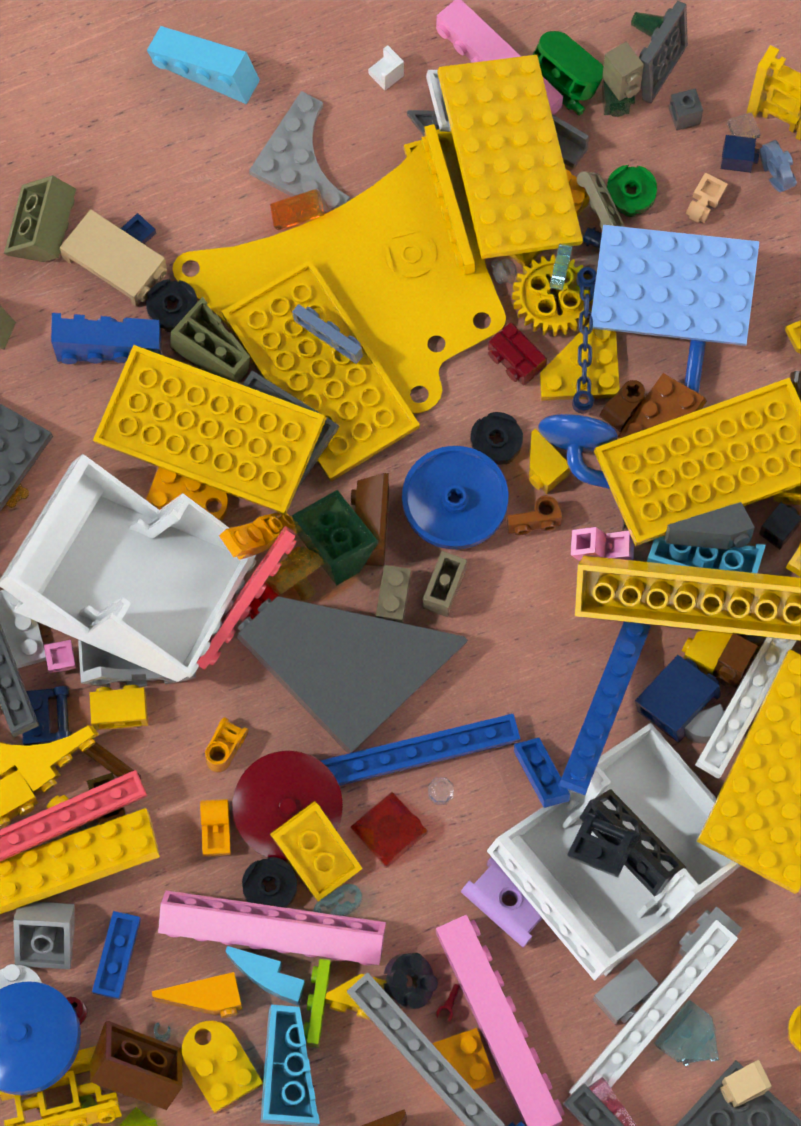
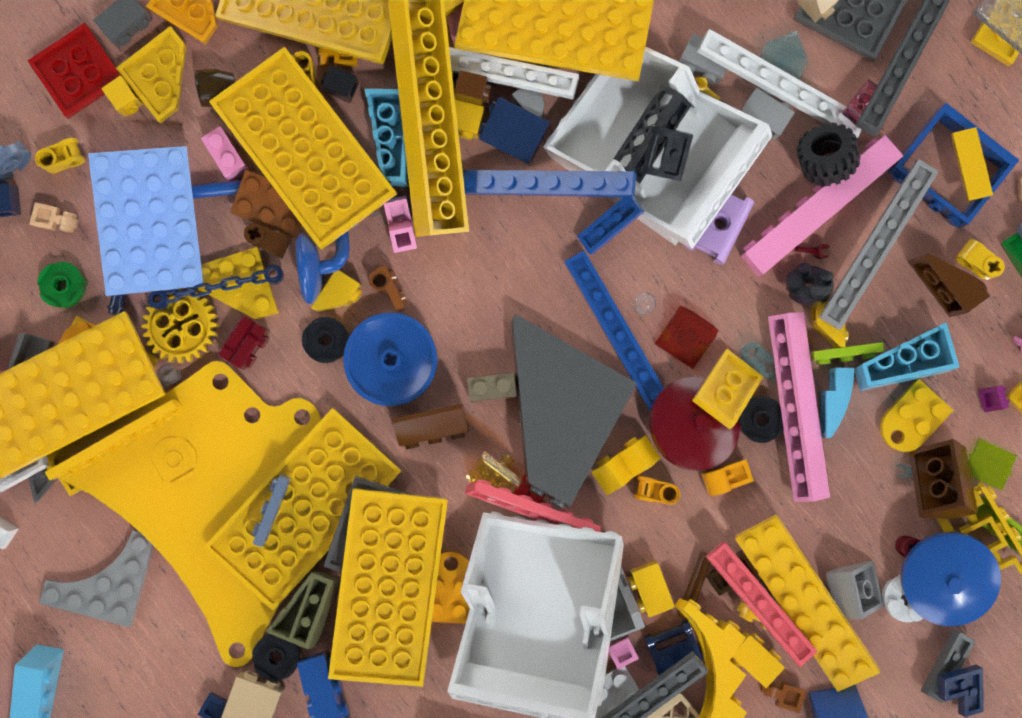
camera: 110 degrees left, 15 degrees up
(116, 955) = (854, 526): blue plate -> none
(210, 995) = (866, 442): light orange slope -> none
(256, 536) = (475, 516): light orange slope -> none
(263, 716) = (624, 465): none -> yellow brick
(297, 209) = (156, 572): clear orange plate -> none
(335, 534) = (455, 449): clear green slope -> none
(444, 584) = (469, 347): dark tan brick -> none
(468, 1058) = (853, 227): light orange plate -> none
(561, 266) = (154, 323): clear light blue beam -> none
(570, 1034) = (828, 140): none -> black tyre
(600, 199) = (80, 306): dark tan plate -> none
(673, 932) = (702, 85): none -> yellow hand
(715, 529) = (365, 129): dark grey slope -> none
(729, 383) = (225, 154): none -> bright pink brick
(773, 224) = (64, 154): none -> yellow piece

